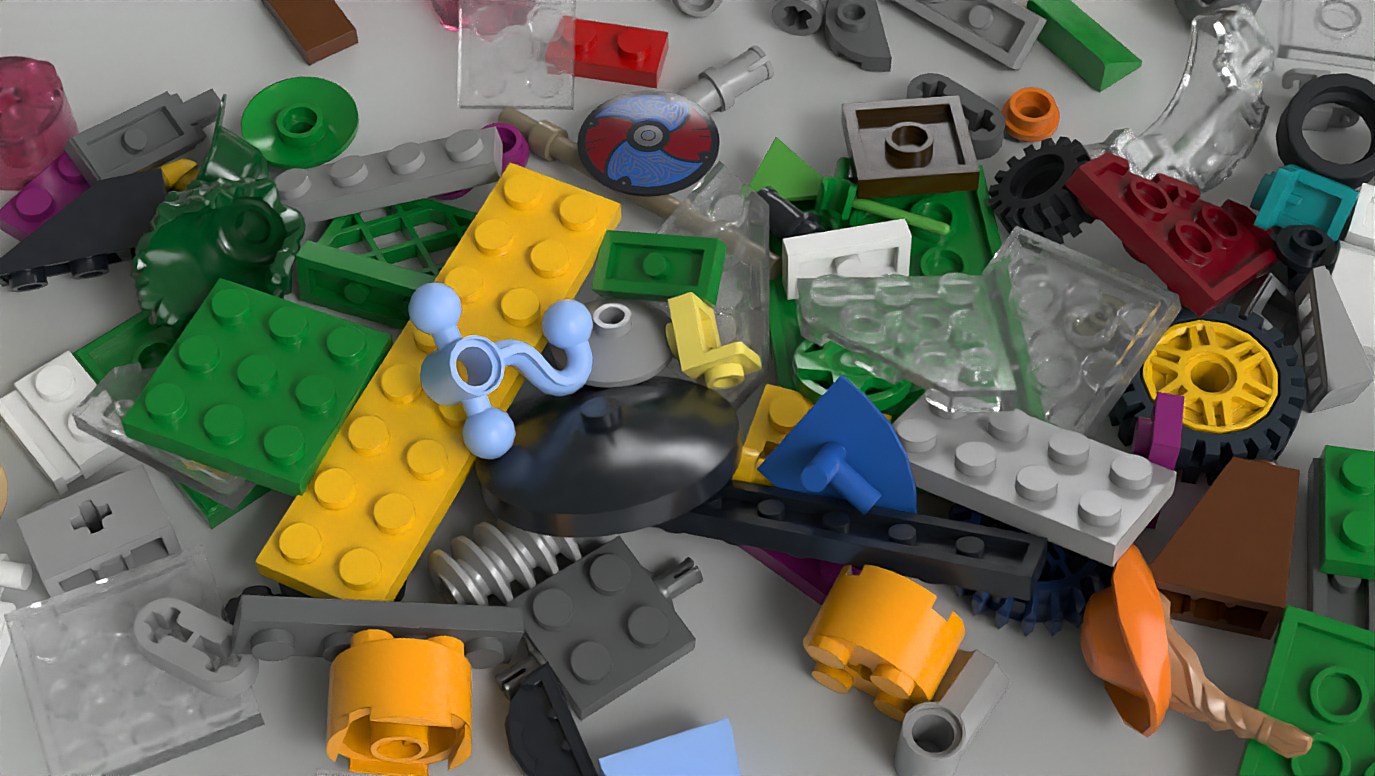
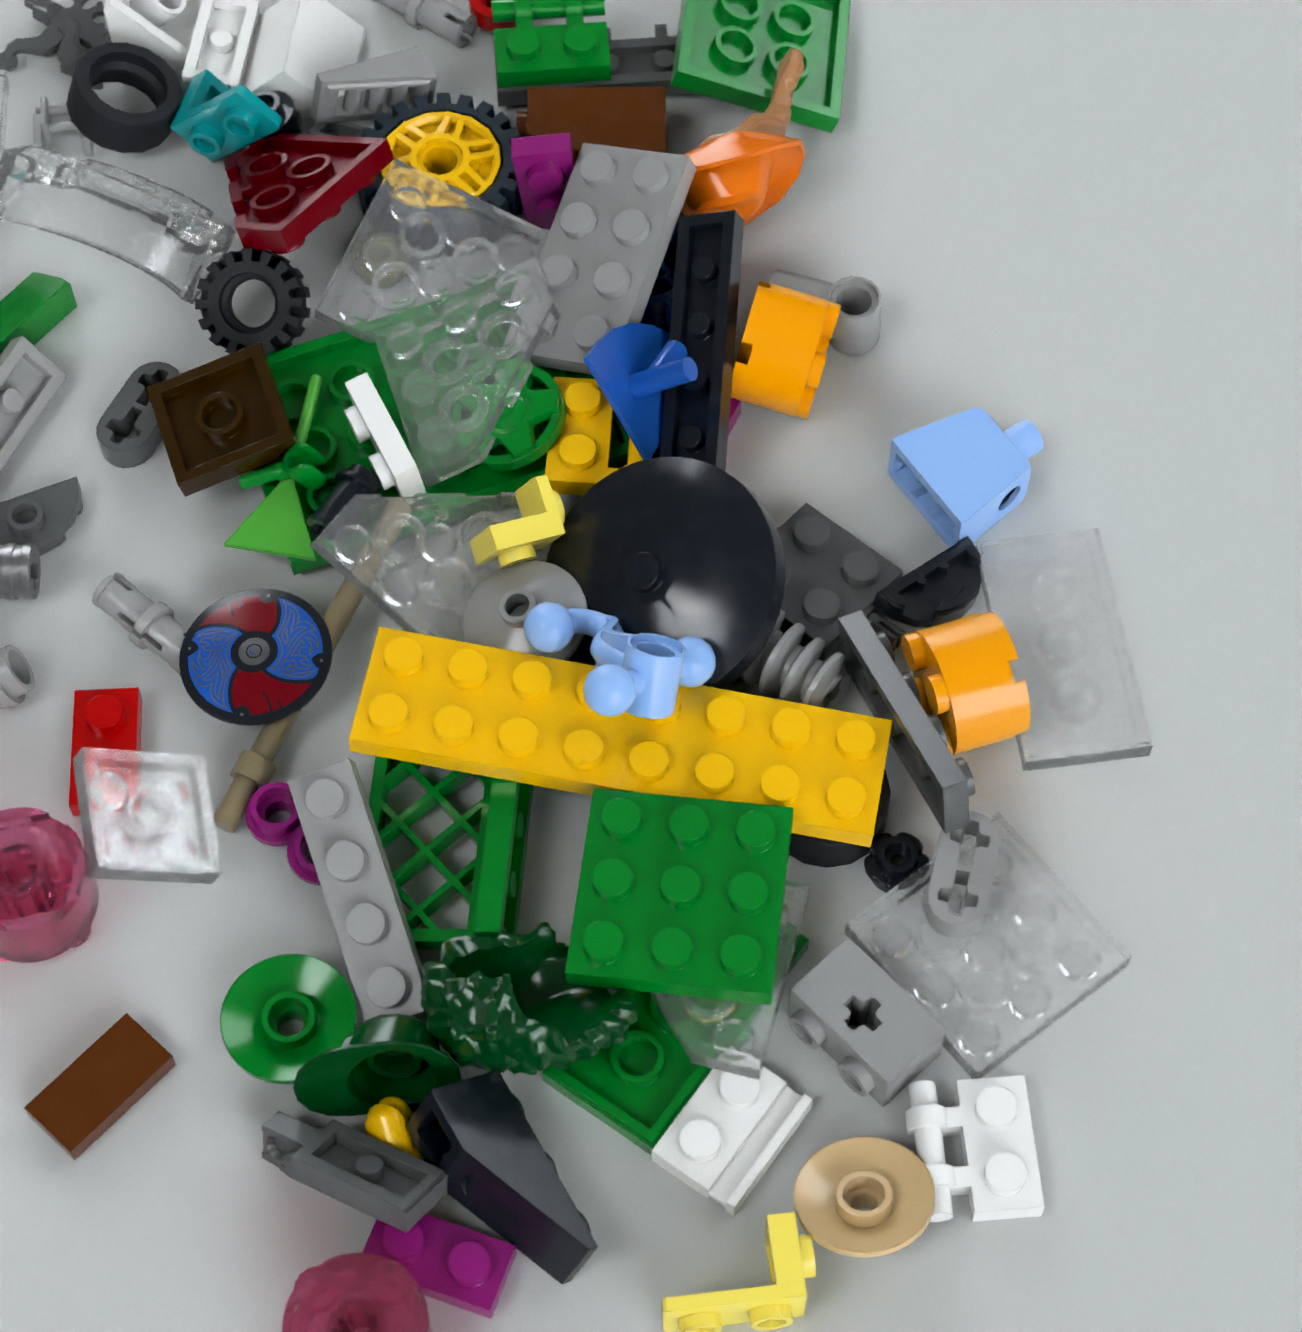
camera: 105 degrees left, 5 degrees up
(658, 266) = (443, 578): green plate -> none
(1031, 115) = (127, 337): orange plate -> none

